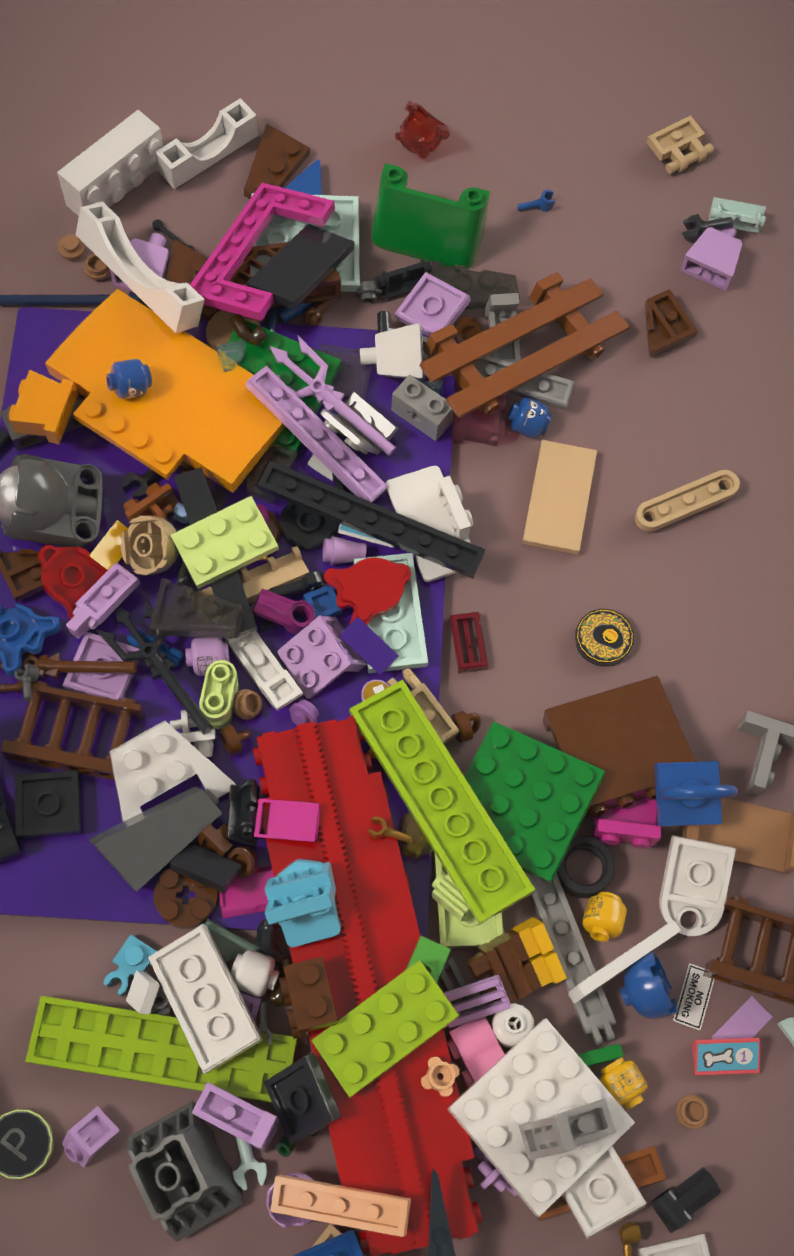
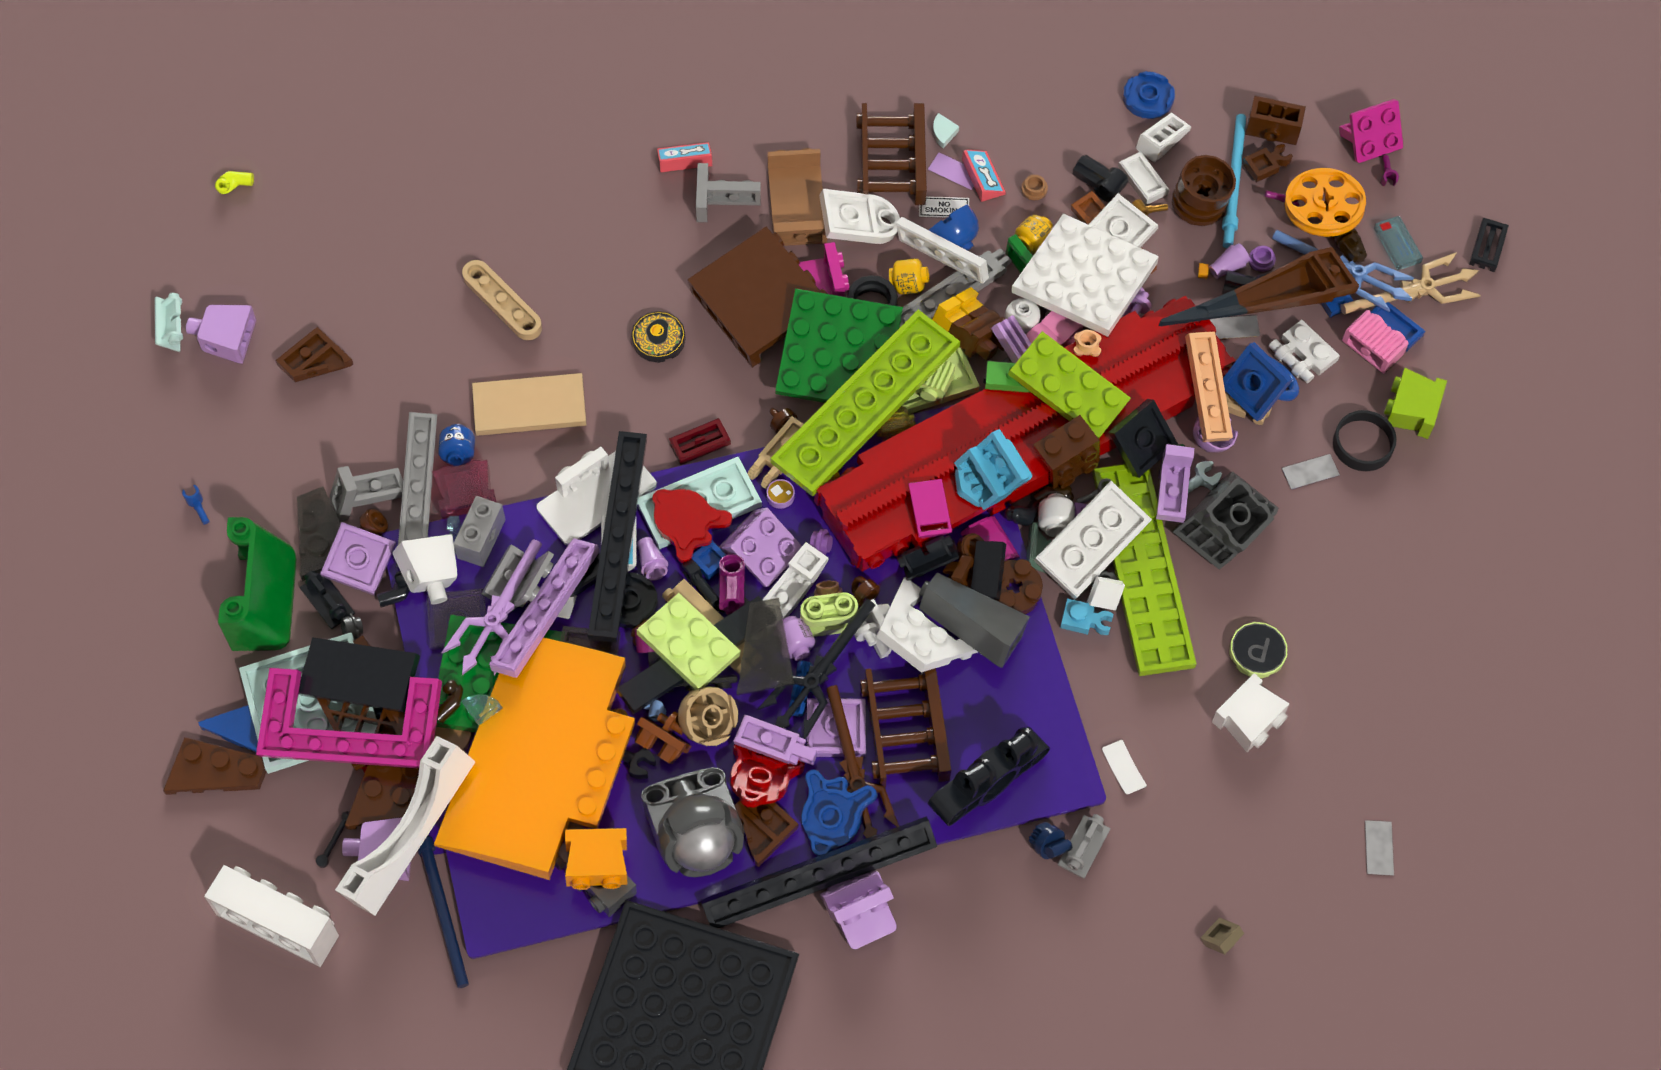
camera: 105 degrees left, 5 degrees down
(27, 677) = (879, 771): dark grey hand -> none
(47, 804) = (978, 722): black plate -> none
(71, 247) = (377, 934): medium nougat plate -> none
(89, 1137) = (1232, 595): lavender bracket -> none
(96, 268) = (397, 900): medium nougat plate -> none
(109, 548) = (714, 756): yellow sticker -> none
(129, 378) = (548, 776): blue head -> none
(232, 129) = (203, 830): white arch -> none
(368, 645) = (741, 504): dark purple sticker -> none
(387, 831) = (909, 431): pearl gold hand -> none
(421, 131) = (140, 628): clear red helmet -> none
(551, 305) = (333, 445): dark orange fence -> none
(567, 1129) = (1097, 241): light grey bracket -> none
(676, 138) = (85, 397): tan plate -> none
(690, 793) = (790, 226): blue tile -> none
(700, 226) = (192, 346): black bar -> none

